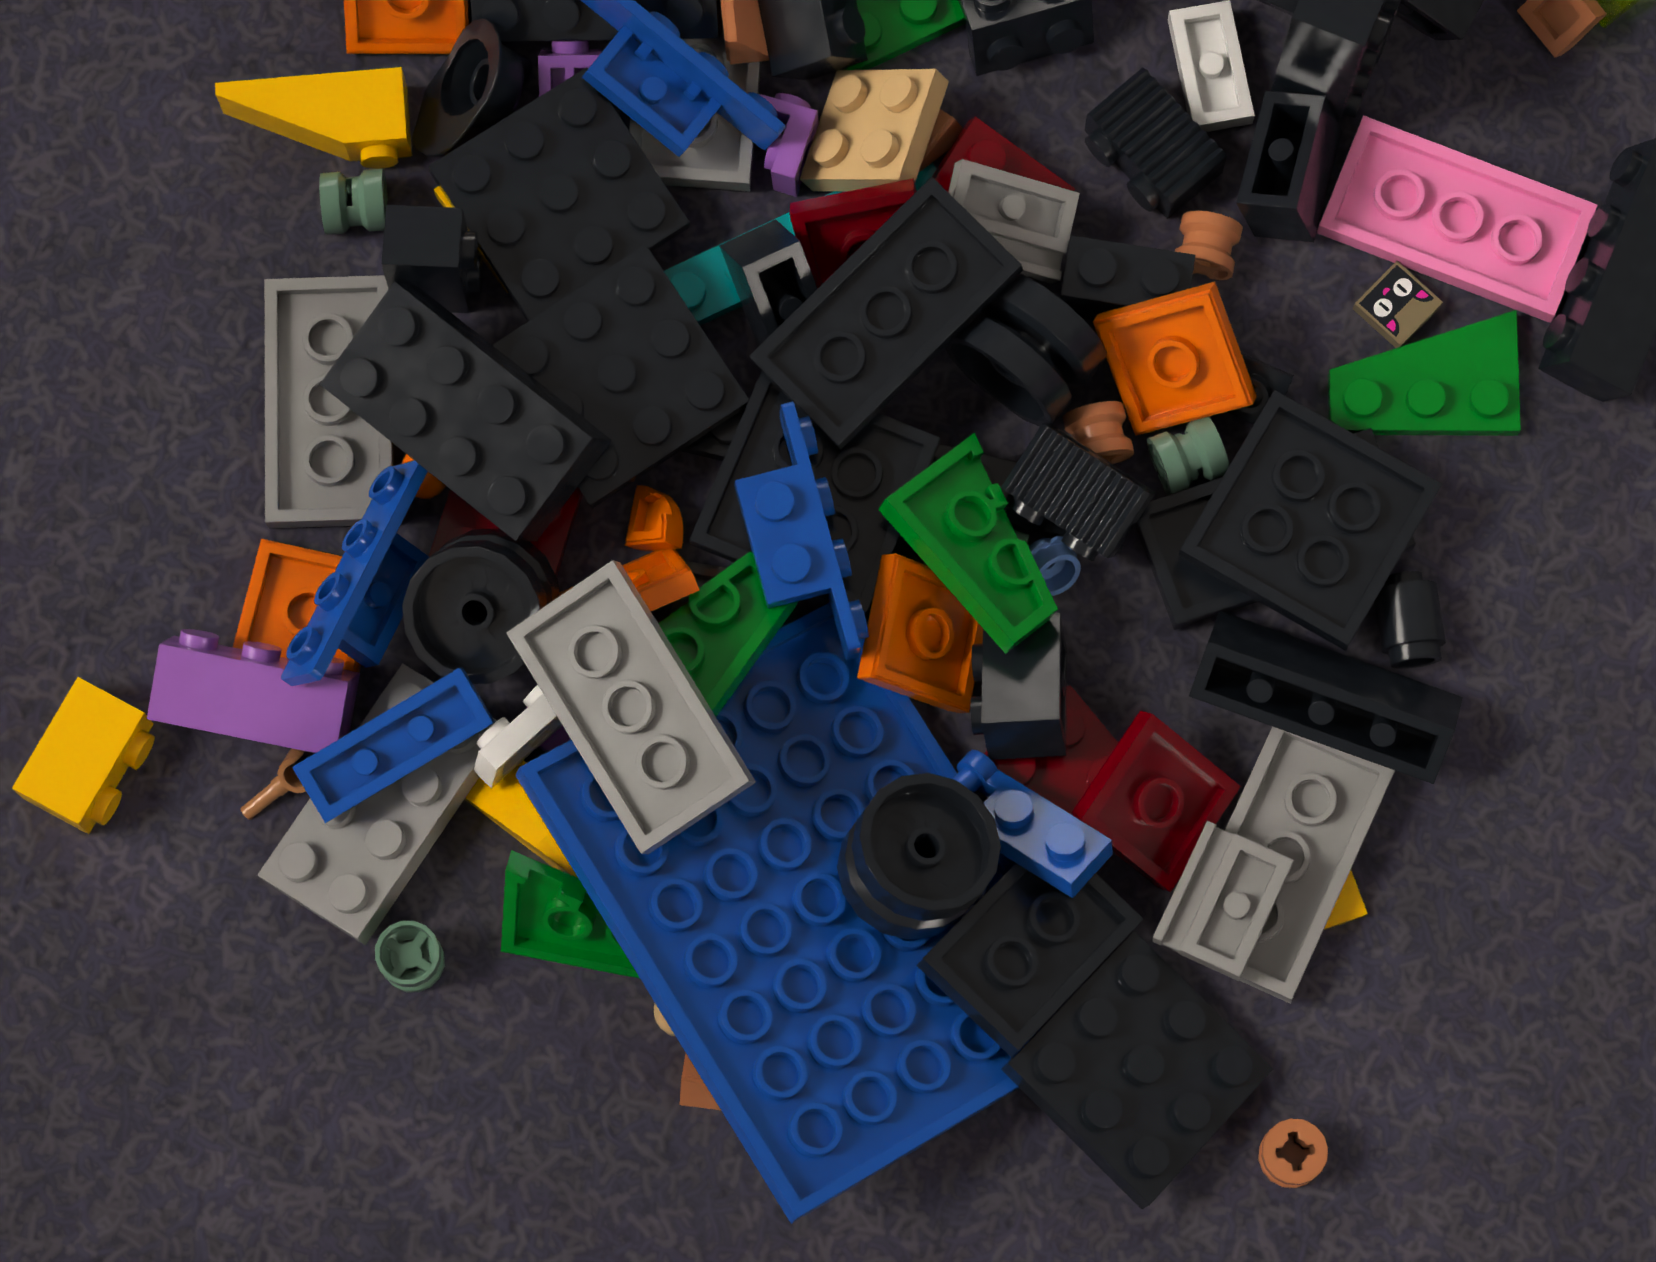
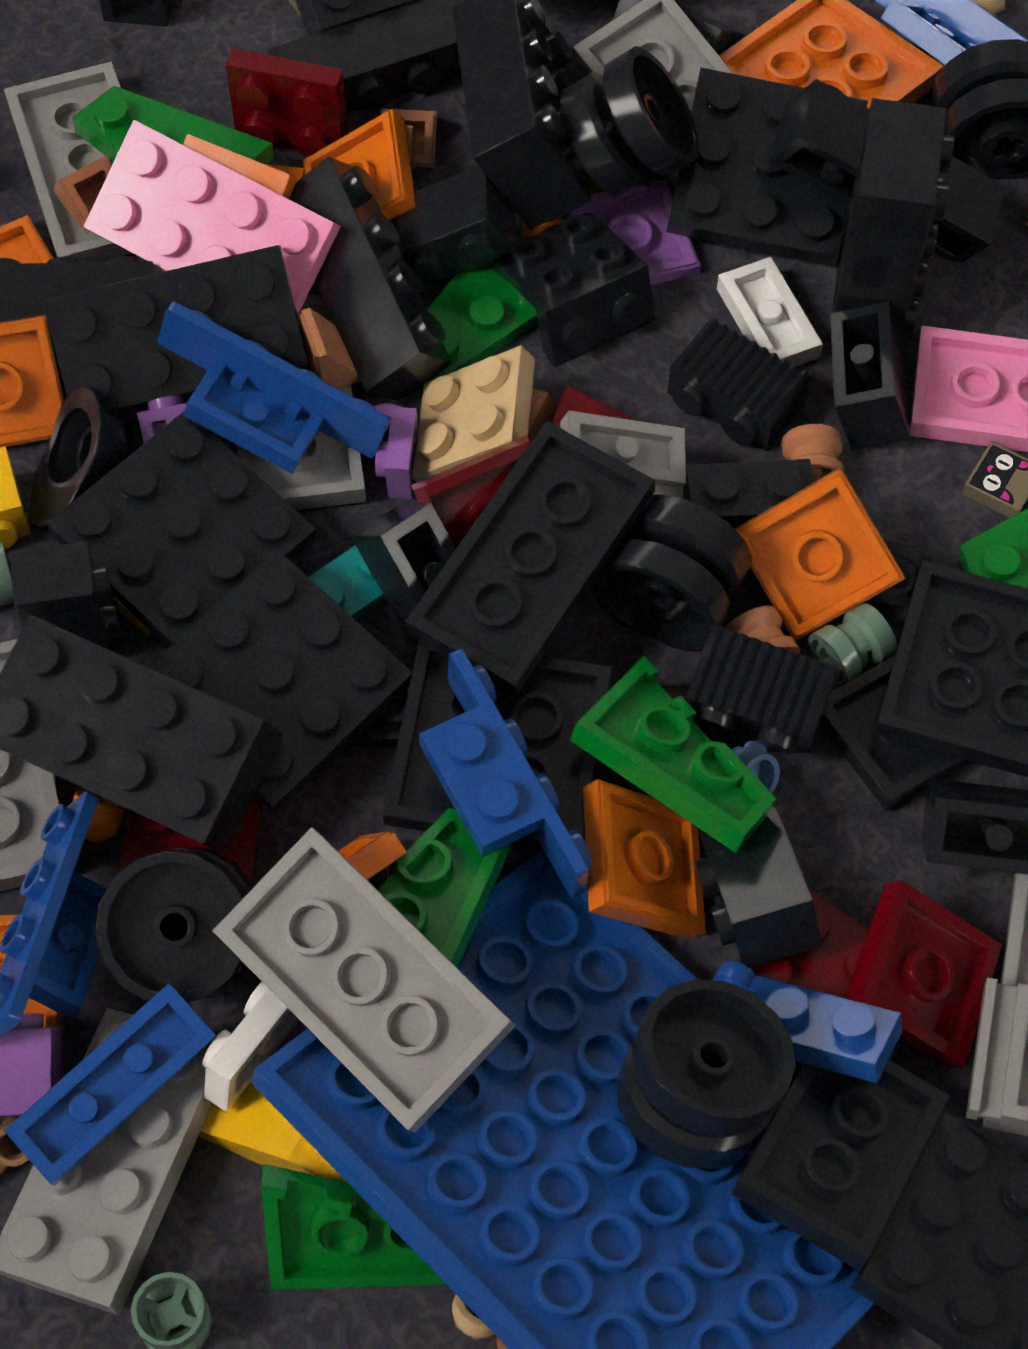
camera: 15 degrees left, 15 degrees down
(654, 521) = (342, 813): orange tile -> none

